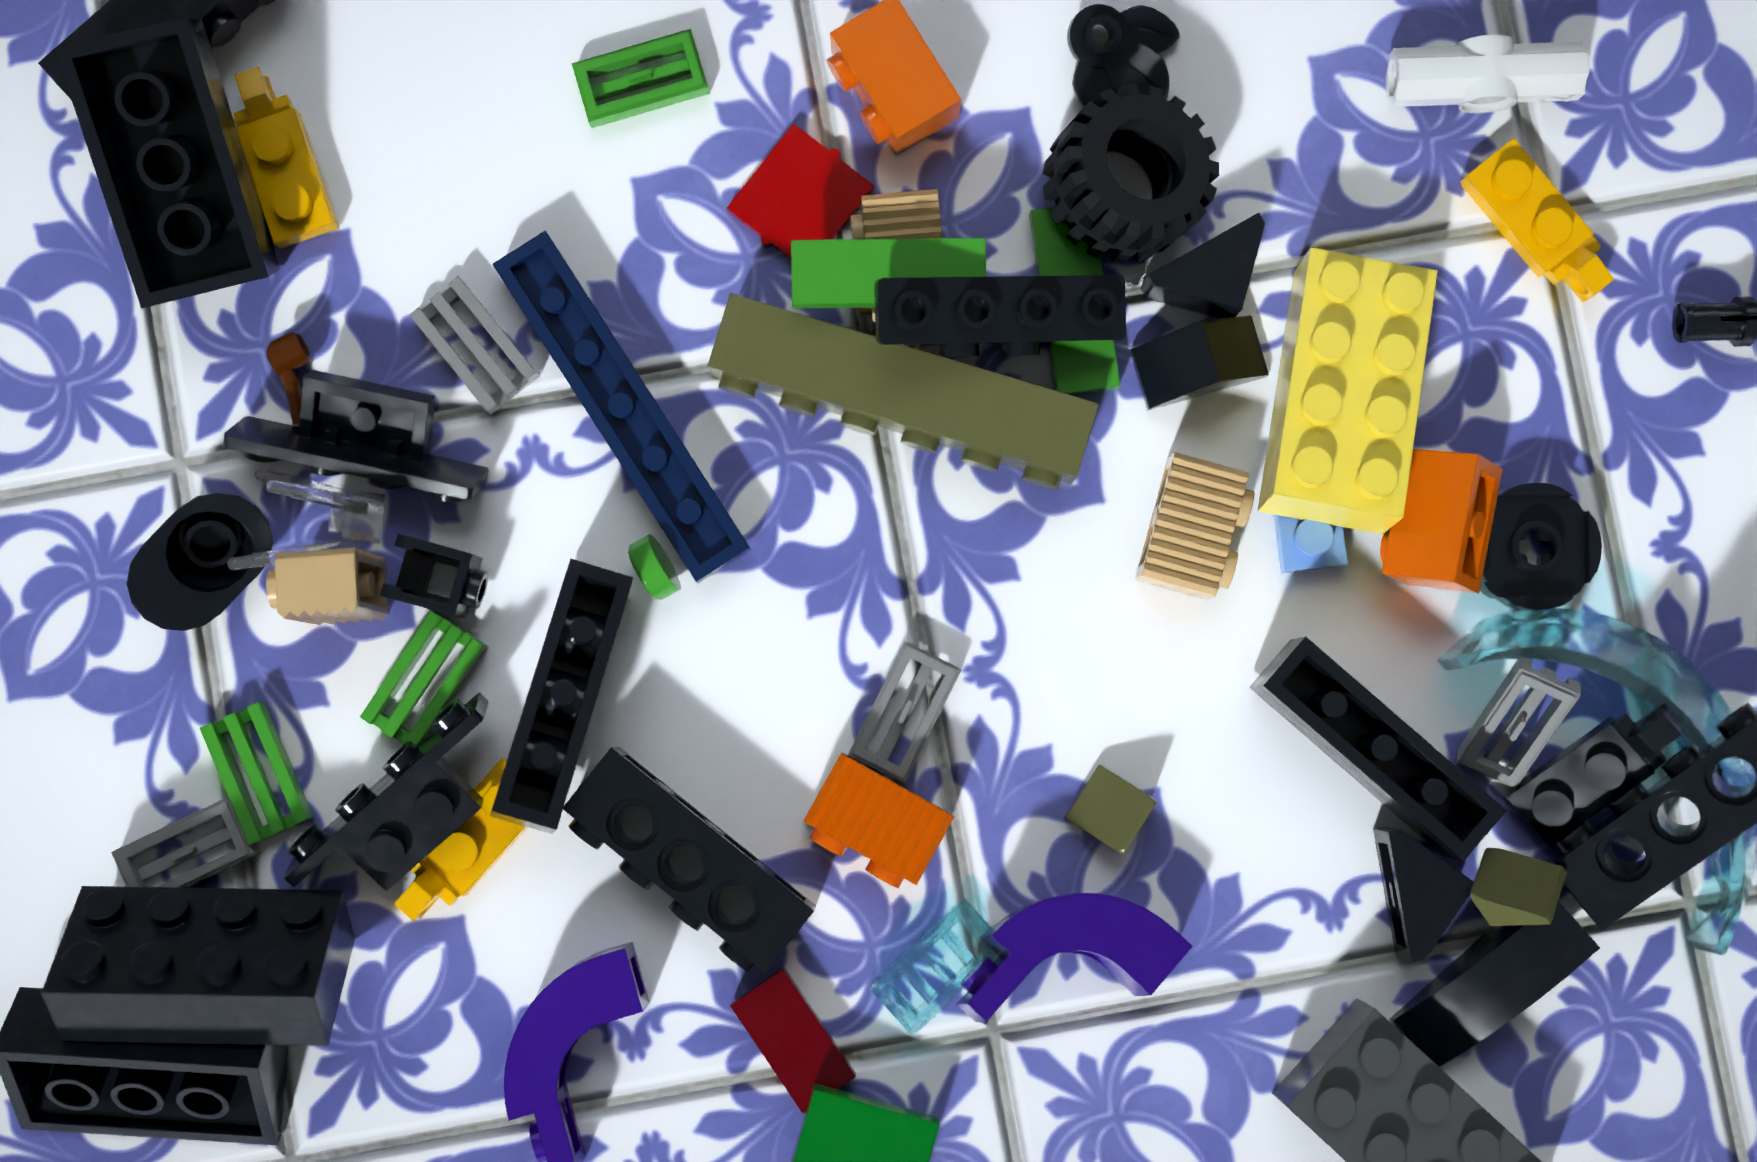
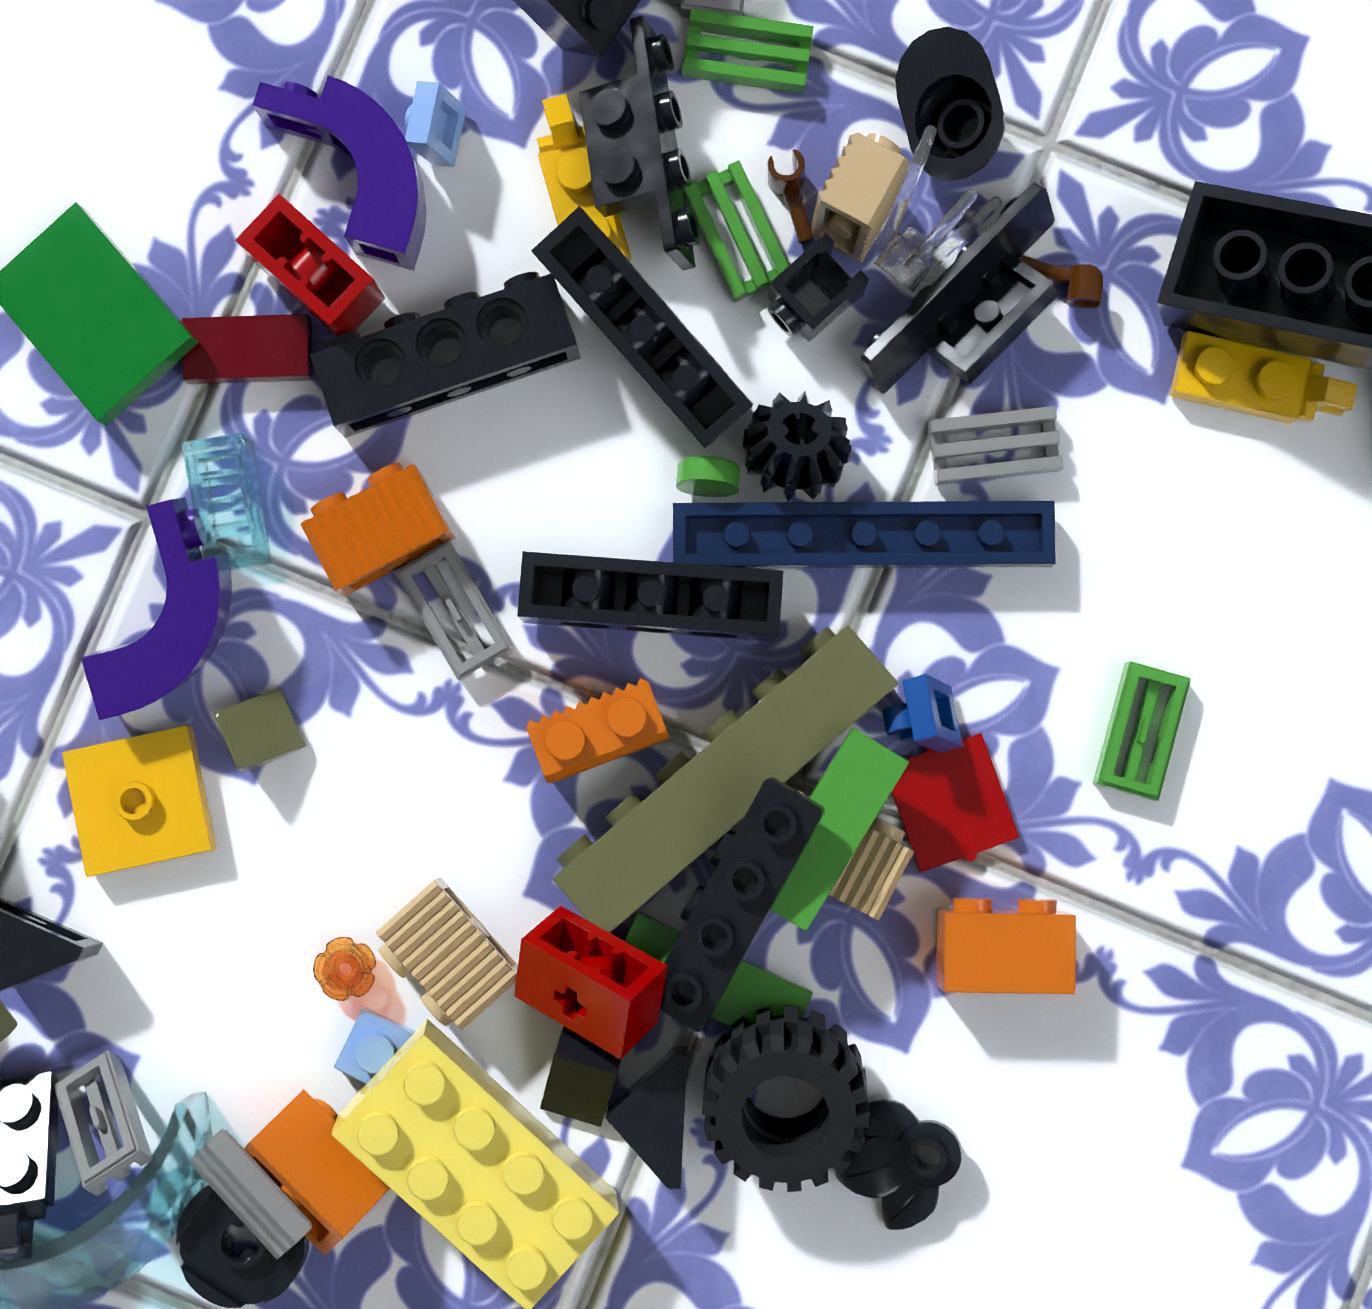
camera: 125 degrees right, 0 degrees up
(361, 653) = (790, 188): none -> reddish brown hand
(492, 1003) = (434, 123): none -> light blue plate
(559, 509) = (796, 446): none -> black gear
(688, 1024) = (310, 267): none -> red brick
(740, 257) = (926, 716): none -> blue tile
(787, 545) = (650, 596): none -> black brick
(929, 519) = (597, 731): none -> orange brick
(1140, 390) = (590, 981): none -> red brick
(1237, 874) = (139, 800): none -> yellow plate
(1278, 605) = (328, 973): none -> clear orange plate
(1377, 748) = (158, 986): black brick -> none
(1493, 557) = (250, 1193): none -> light grey tile

